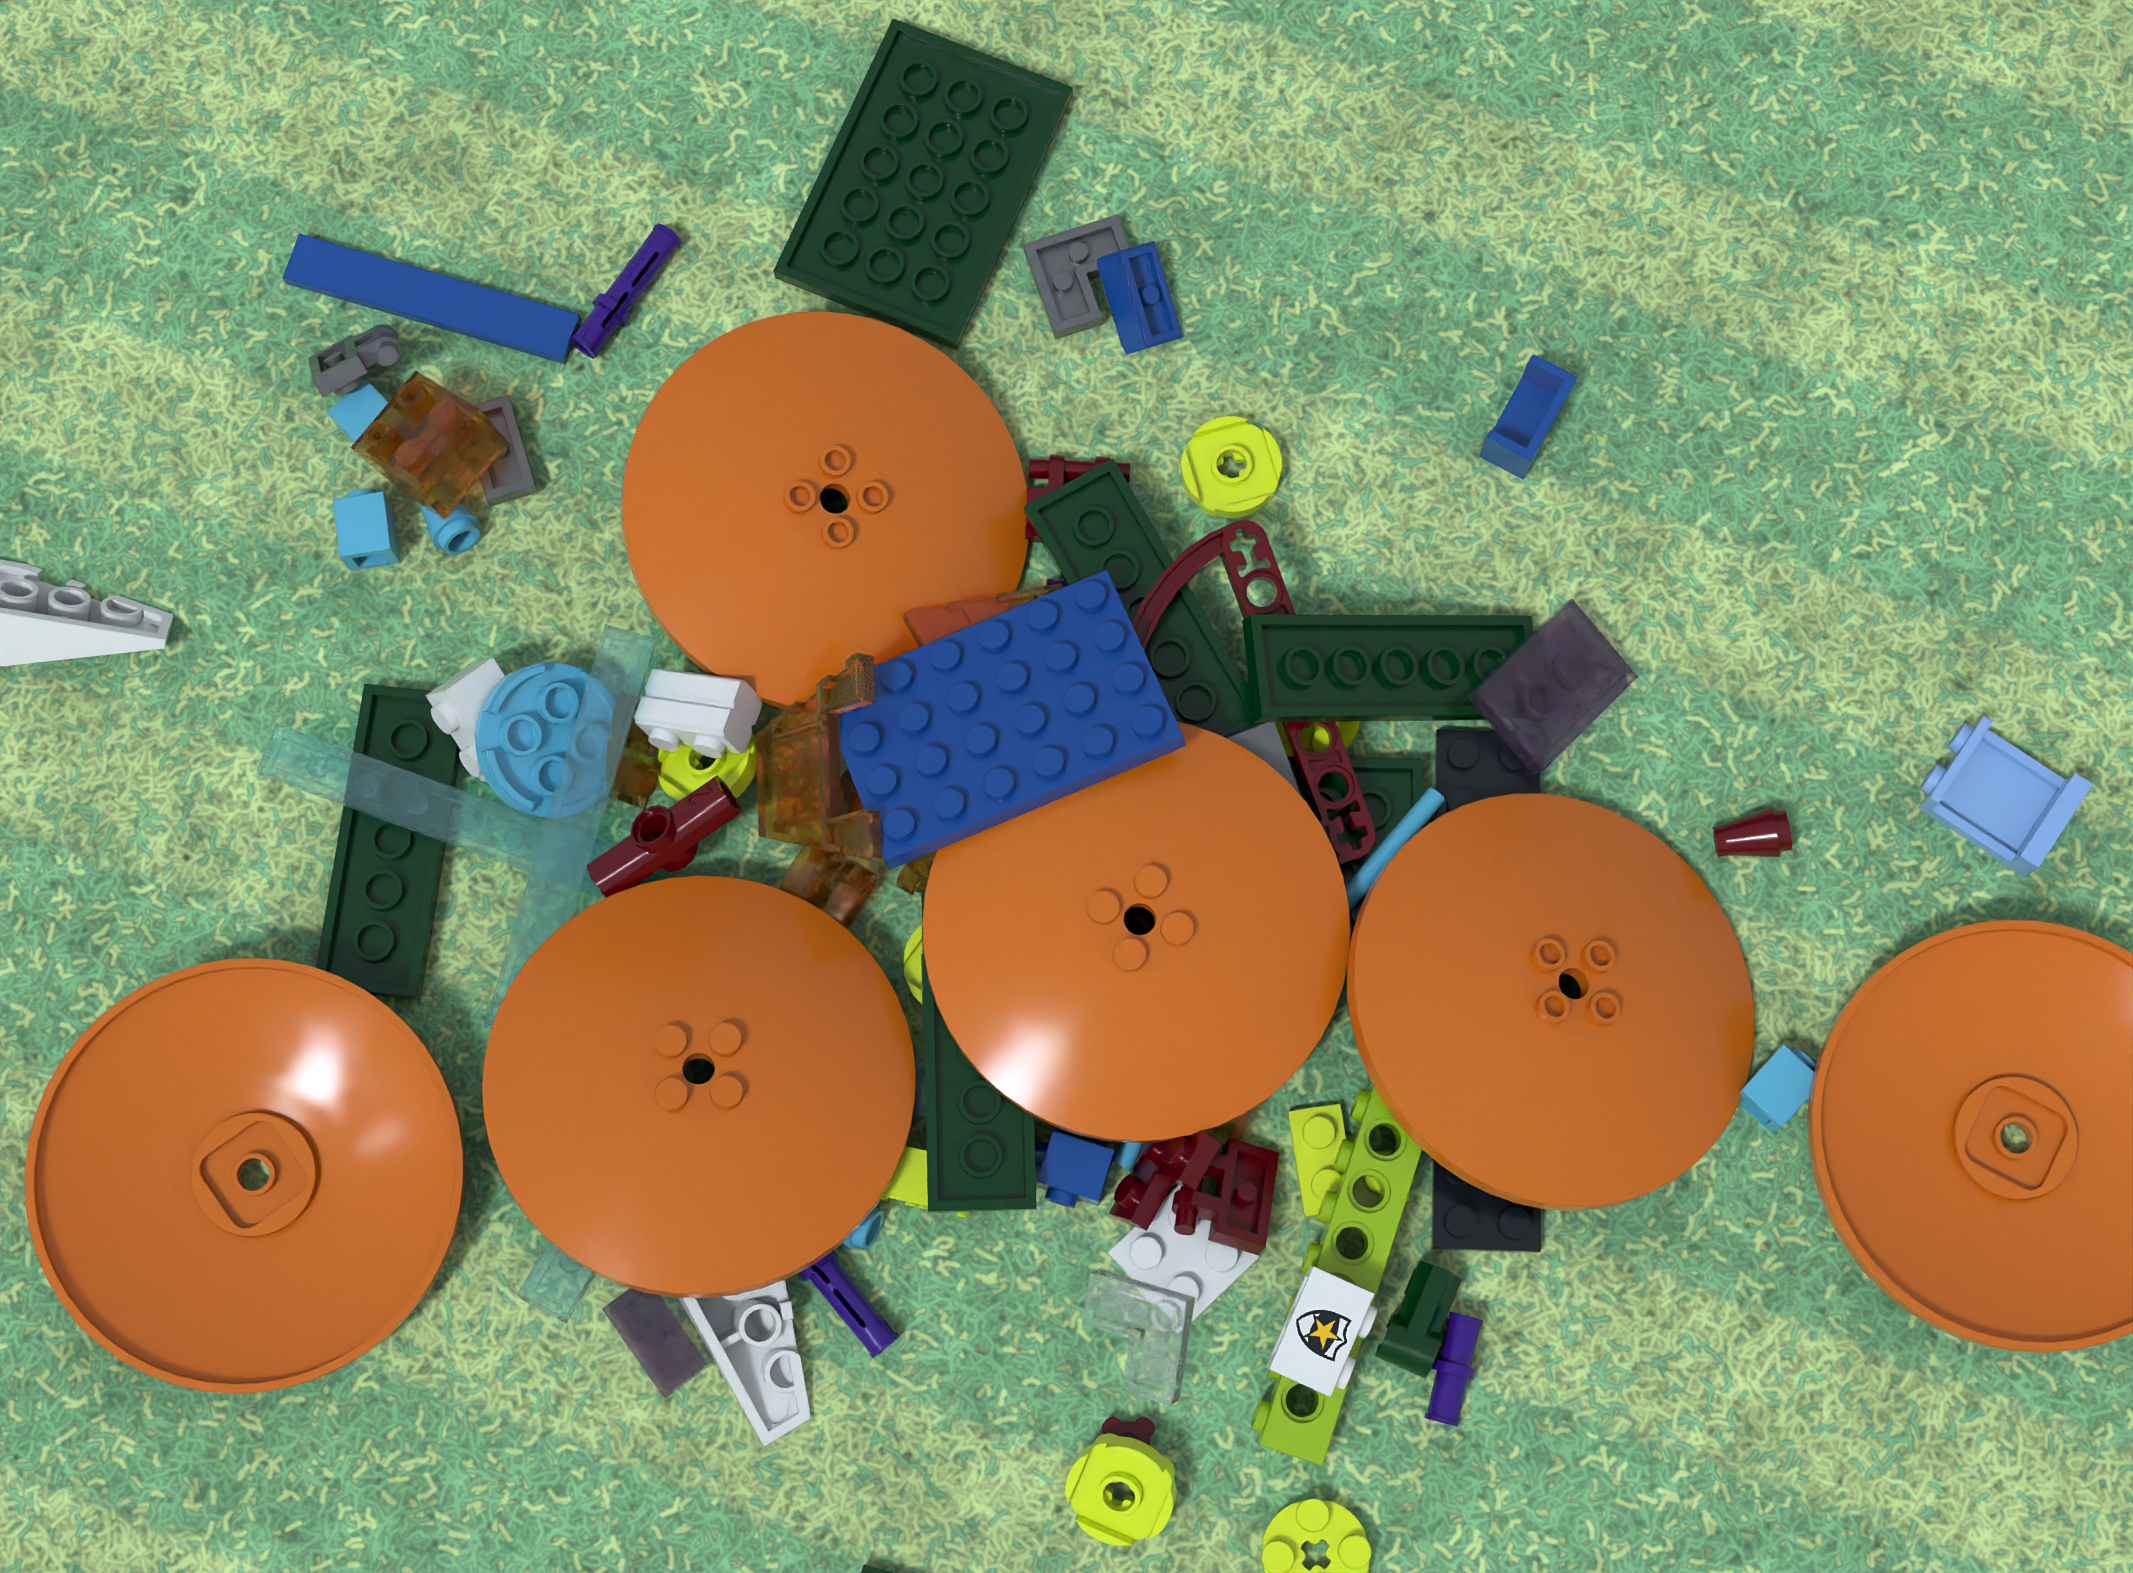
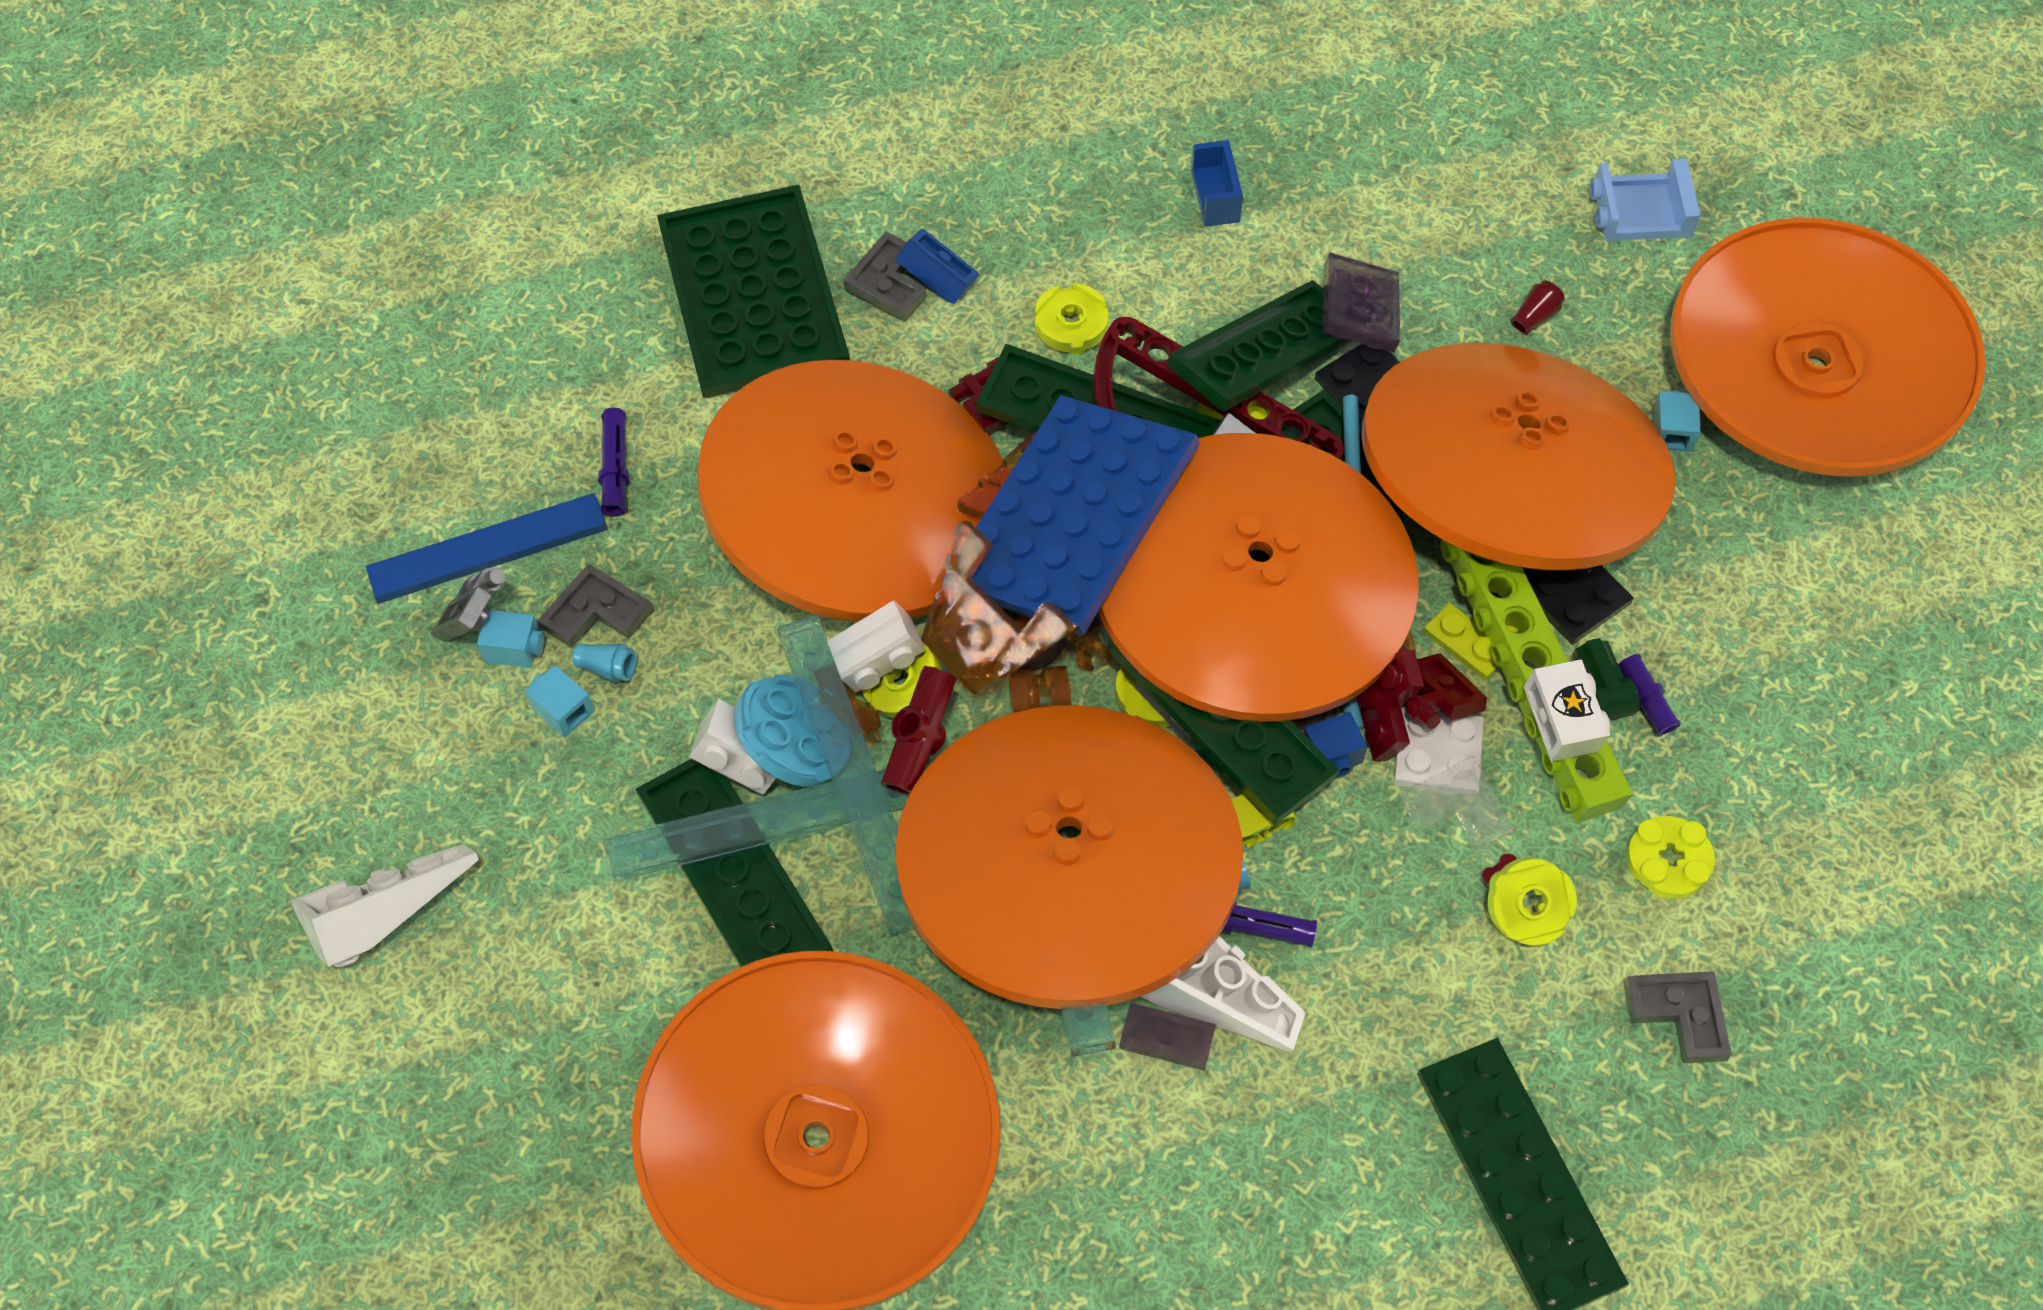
camera: 40 degrees left, 15 degrees down
(430, 444) = (565, 614): clear orange slope -> none

